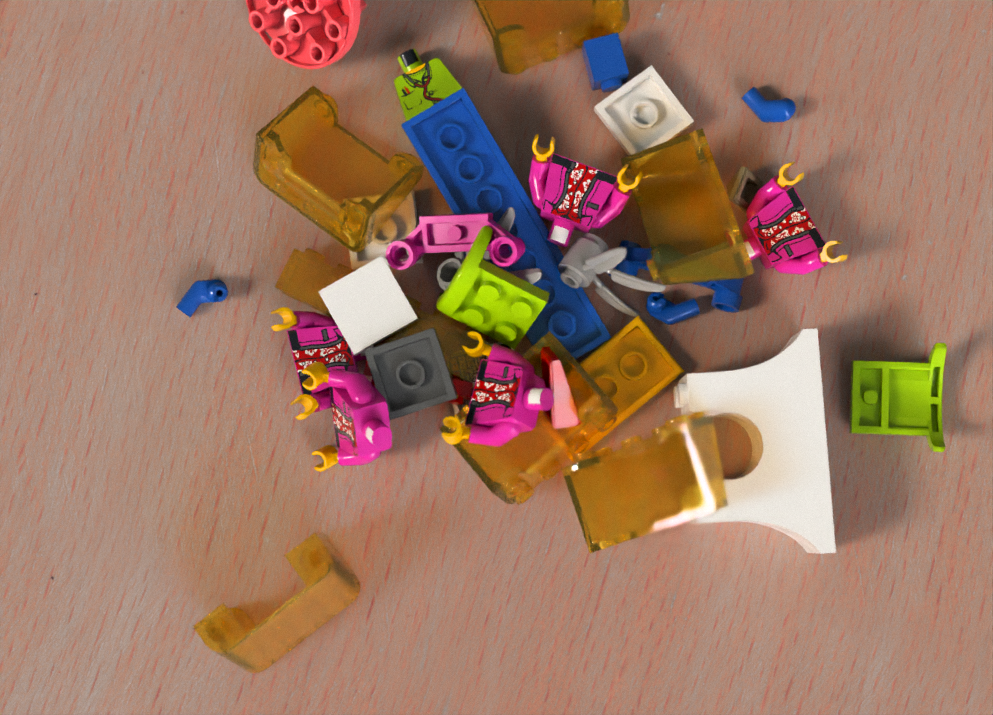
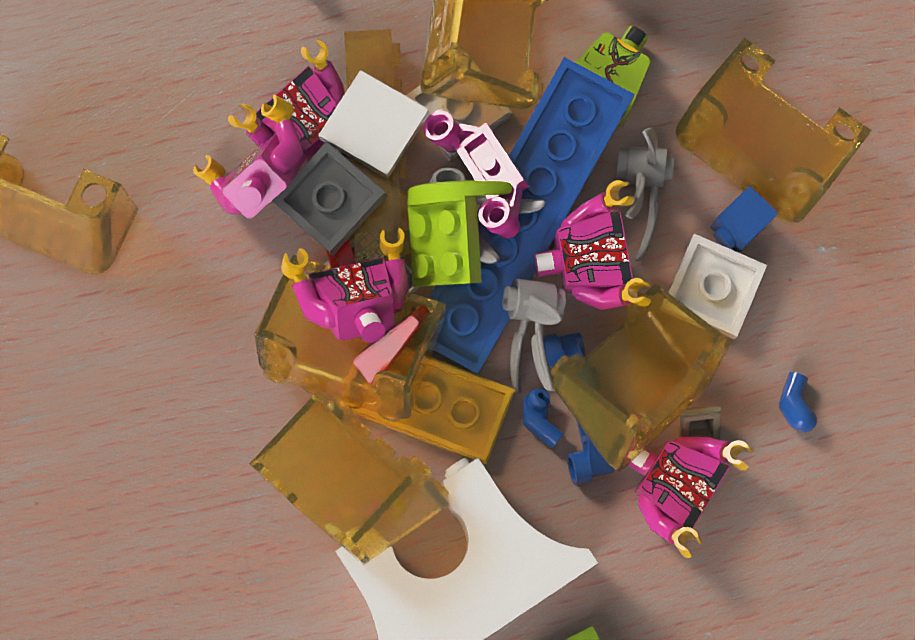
camera: 55 degrees right, 5 degrees down
(520, 113) = (643, 169): none -> light grey plant

